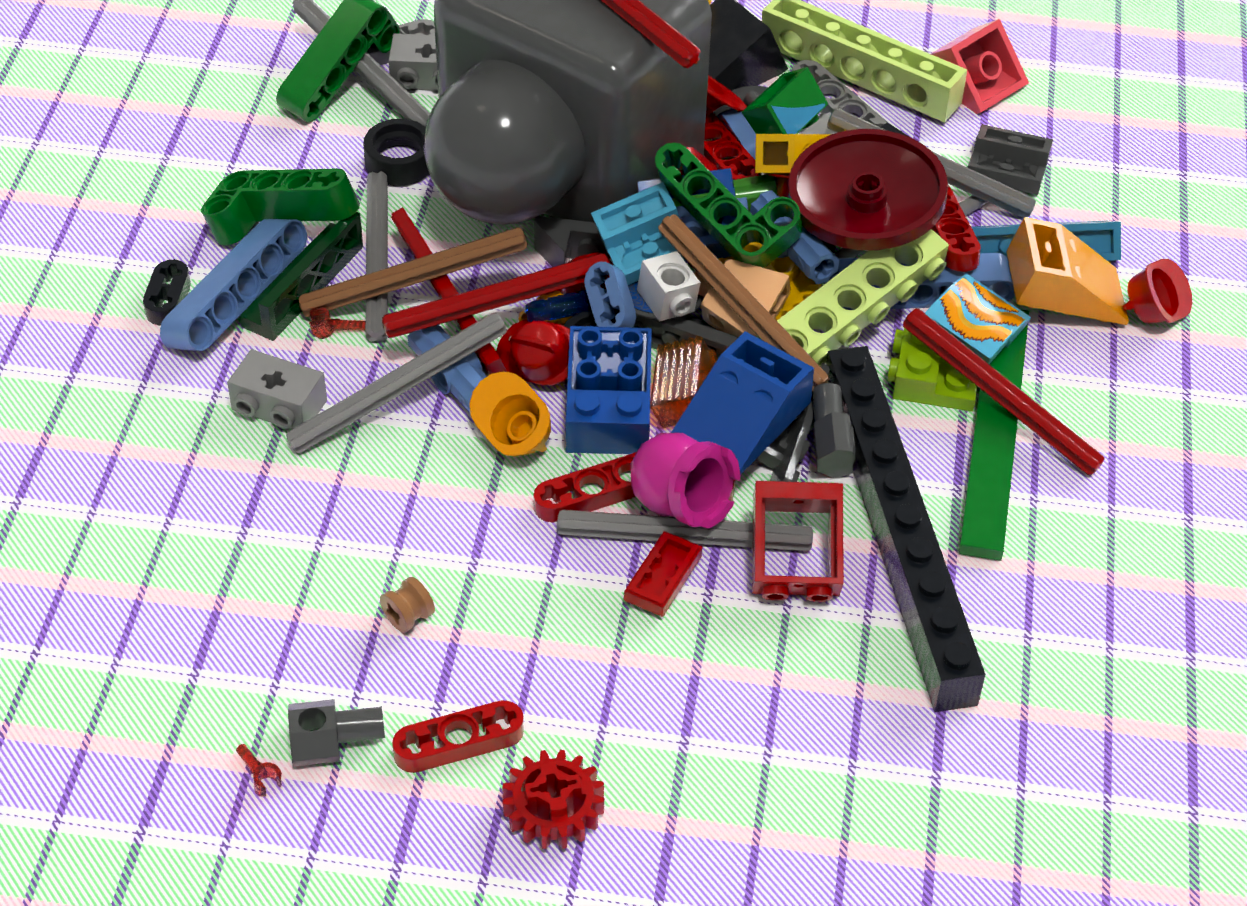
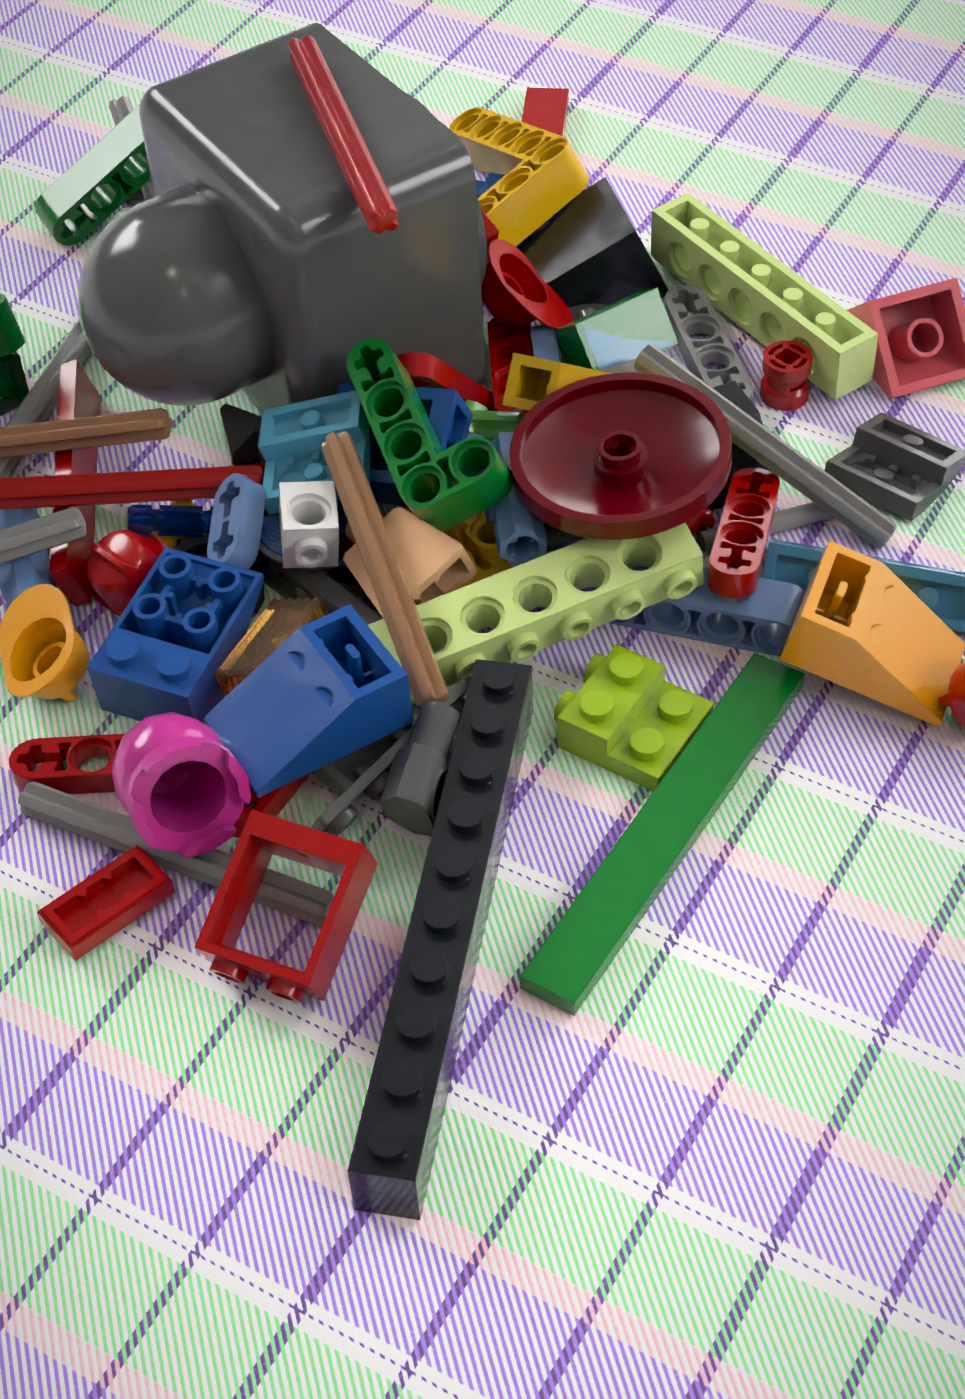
camera: 25 degrees right, 0 degrees up
(908, 110) = (786, 375): none -> red wheel
(978, 317) = (710, 665): slope -> none
(1003, 392) = (695, 780): red axle -> none

